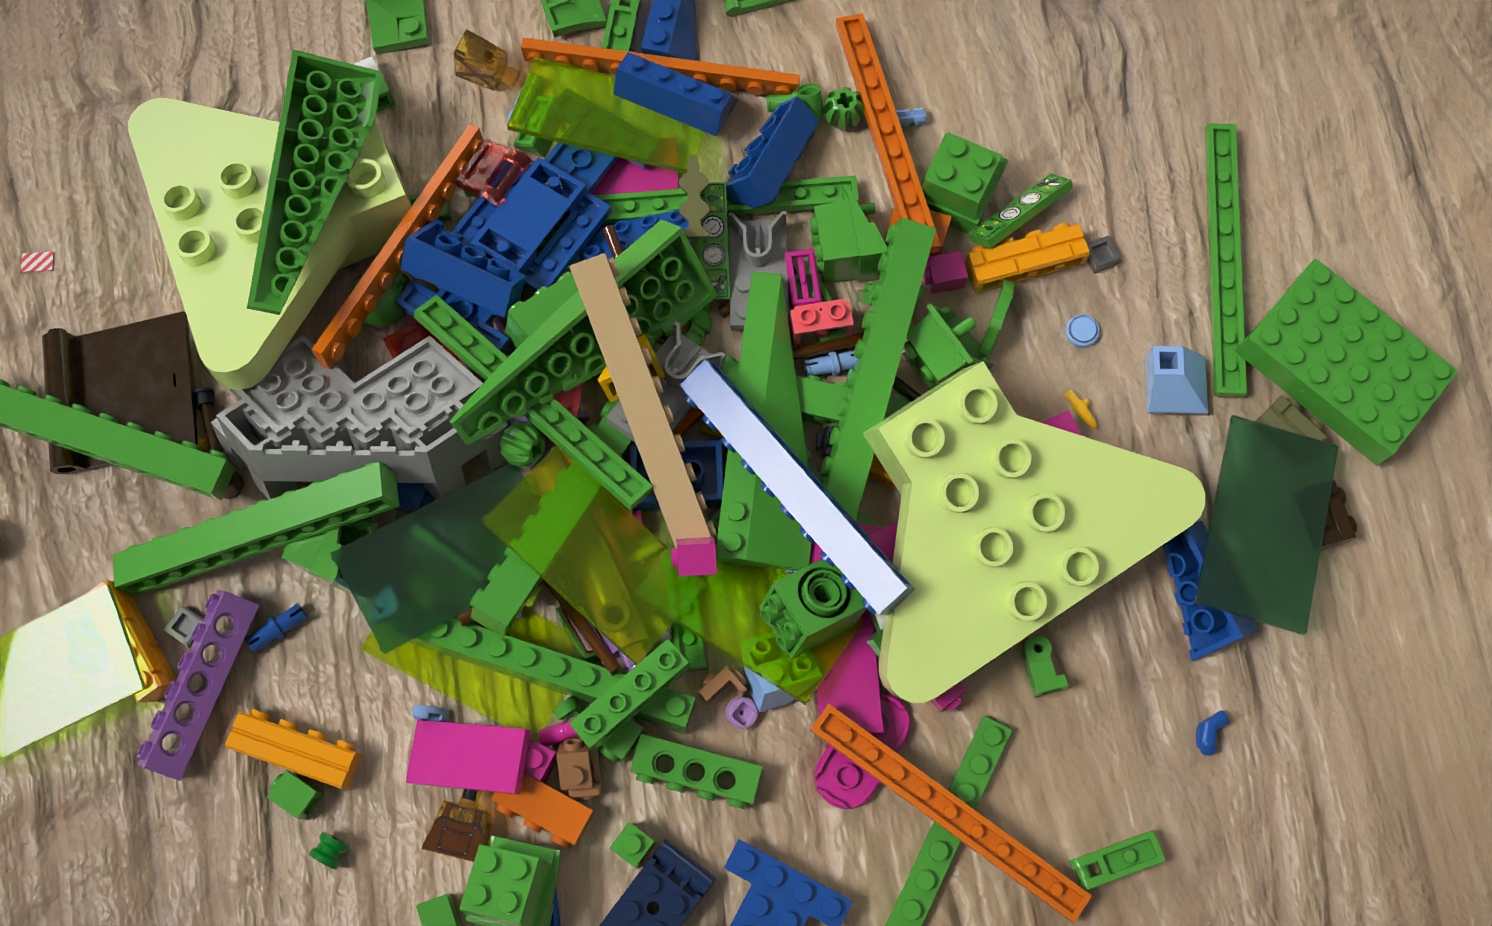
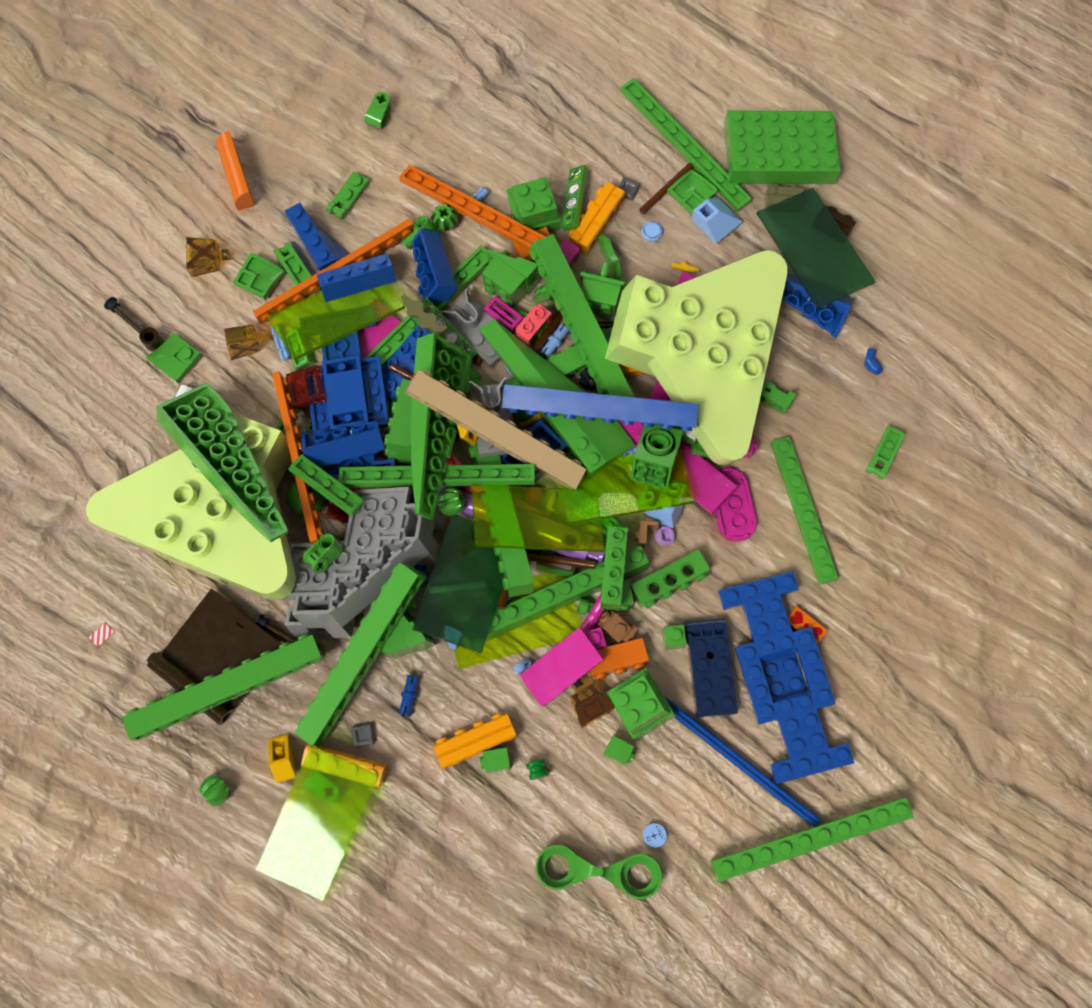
camera: 45 degrees left, 0 degrees up
(76, 570) = (281, 758): none -> yellow slope
(200, 702) = (407, 759): medium lavender brick -> none
(316, 374) = (323, 552): none -> bright green piece
(396, 301) = (326, 485): none -> bright green tile
(694, 556) = (583, 479): dark pink brick -> none
(951, 813) = (797, 494): orange plate -> none
(1150, 293) = (653, 200): none -> reddish brown bar
(1179, 321) = (691, 190): none -> bright green plate

